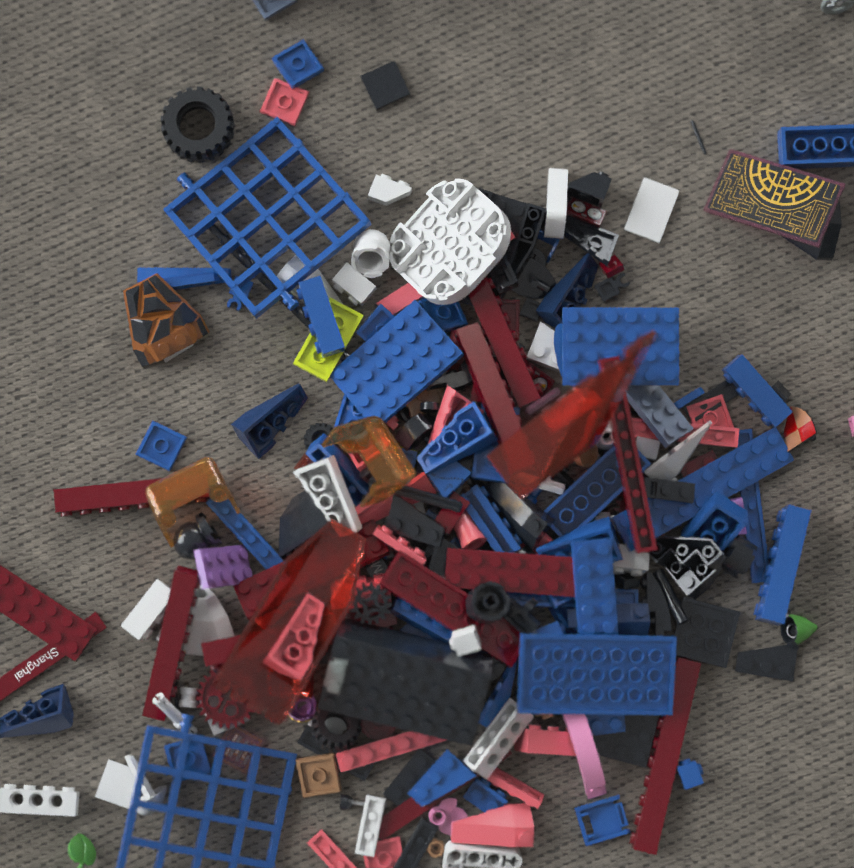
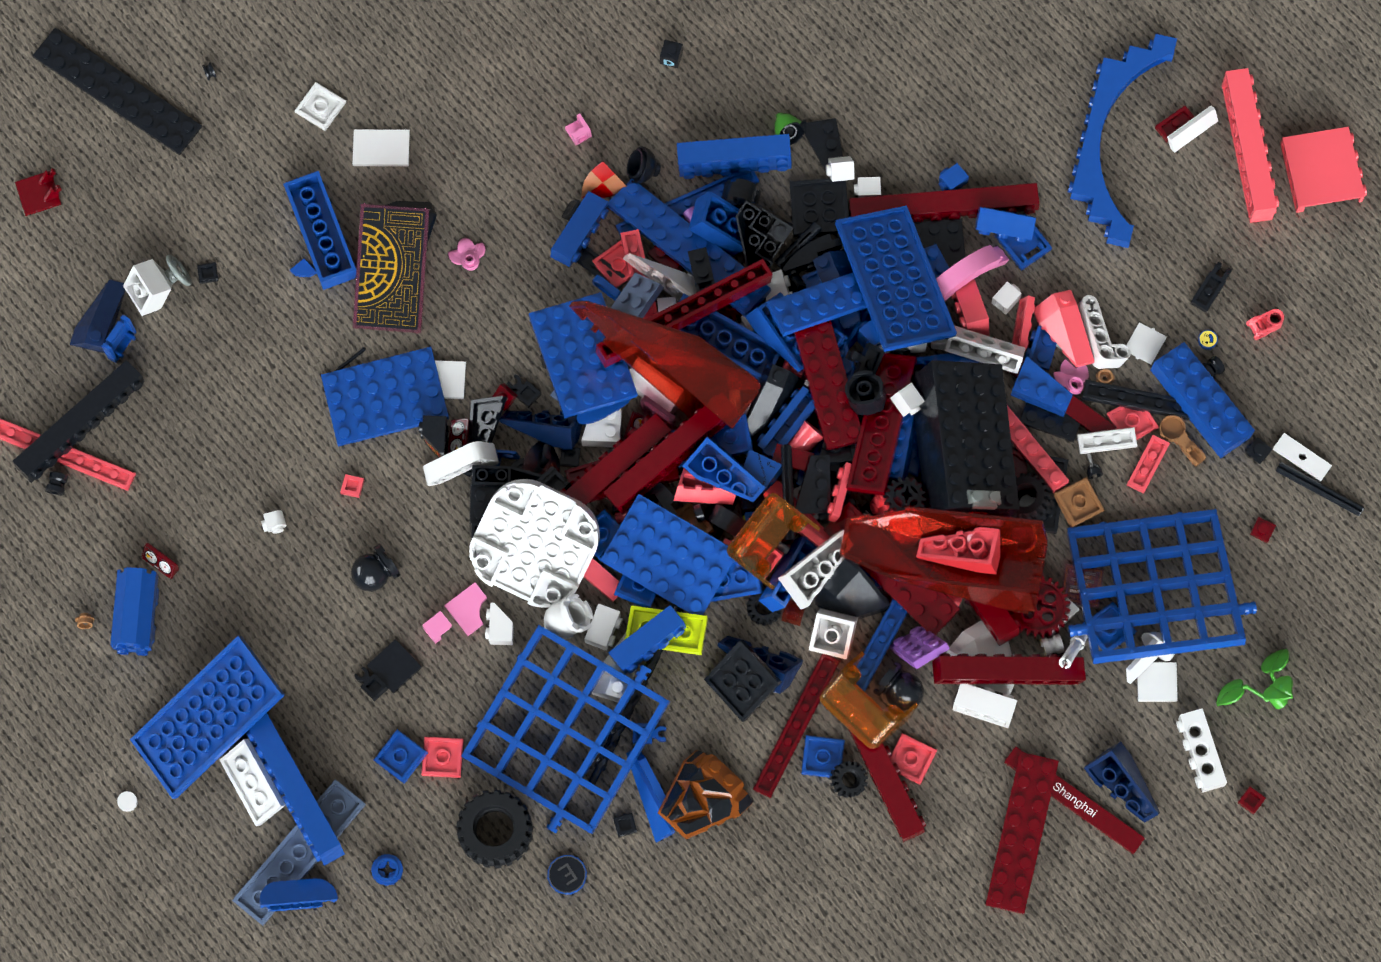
camera: 105 degrees left, 10 degrees down
(130, 527) = (912, 758): none -> coral tile
(136, 178) = (567, 874): none -> black tile
(139, 456) = (859, 776): none -> black tyre
(163, 244) = (625, 825): none -> black tile
(194, 13) = (394, 864): none -> blue gear
(200, 432) = (796, 726): none -> dark red tile
(254, 394) = (742, 680): none -> black plate
(270, 493) = (833, 633): none -> white brick
(373, 59) = (372, 686): none -> black plate
(407, 133) = (437, 626): none -> bright pink panel
(416, 167) = (466, 608): none -> bright pink tile
(480, 91) = (372, 570): none -> black tile
(549, 782) = (1006, 297): none -> white brick
(560, 18) = (274, 522): none -> white plate
(571, 99) = (352, 486): none -> coral plate
(623, 807) = (1005, 224): none -> blue brick
(650, 157) = (383, 396): none -> blue plate
(707, 686) = (867, 187): none -> white brick
(735, 665) = (840, 168): none -> white brick
(771, 278) = (466, 251): none -> bright pink plate
(802, 473) = (642, 165): none -> black piece
(804, 118) = (303, 269): none -> blue tile
(830, 31) = (207, 273): none -> black tile

